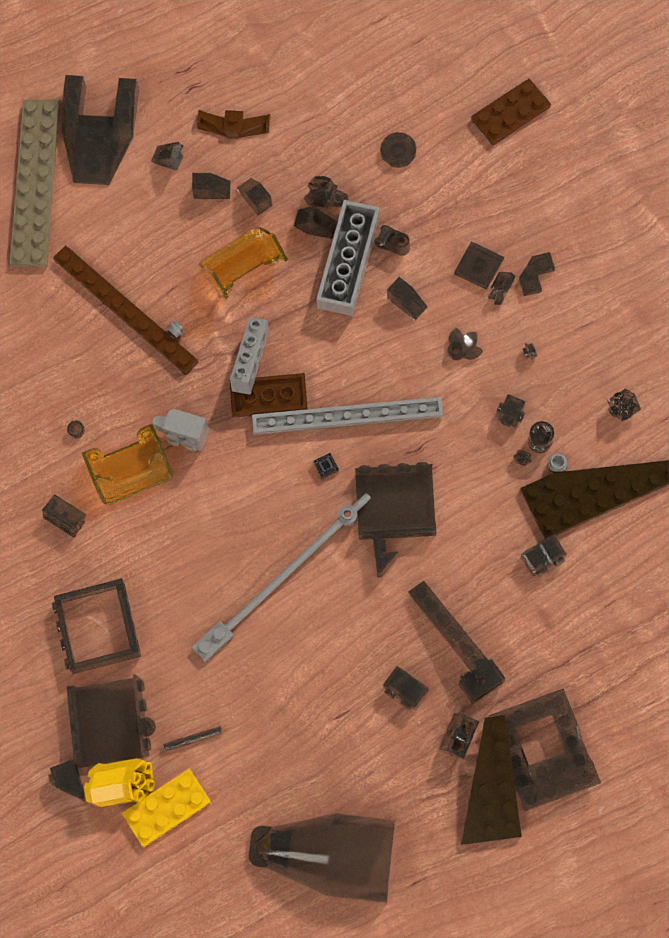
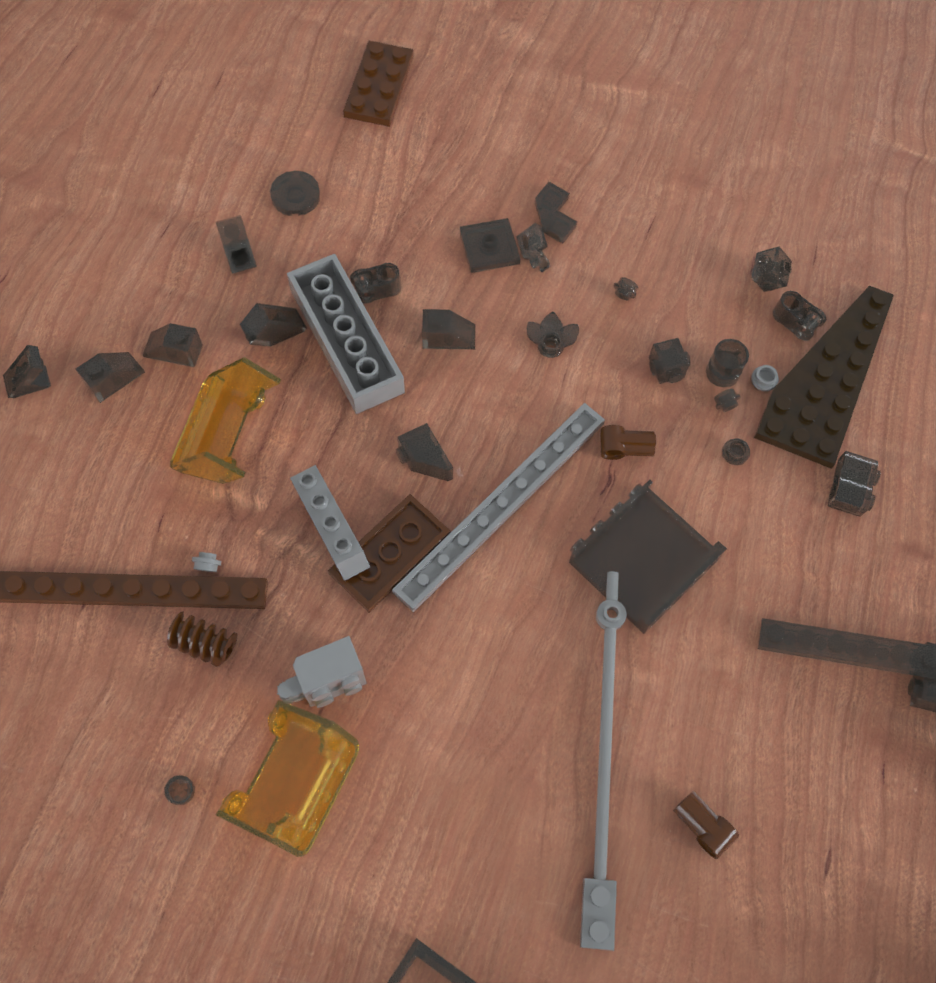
camera: 50 degrees left, 5 degrees down
(63, 515) = (260, 920): clear smoke hinge -> none
(140, 366) = (199, 641): none -> reddish brown piece
(233, 124) = (79, 291): reddish brown plate -> none
(298, 652) = (712, 831): none -> reddish brown piece
(324, 193) = (256, 284): clear smoke hinge -> none
(326, 465) = (529, 579): tile -> none
(331, 356) = (424, 454): none -> clear smoke slope
(336, 159) = (236, 244): none -> clear smoke slope
(383, 560) = (698, 636): clear smoke slope -> none
(406, 688) = (870, 762): clear smoke brick -> none
(440, 433) = (618, 442): none -> reddish brown piece
(499, 488) = (736, 451): none -> clear smoke plate
(613, 447) = (797, 313): none -> clear smoke piece

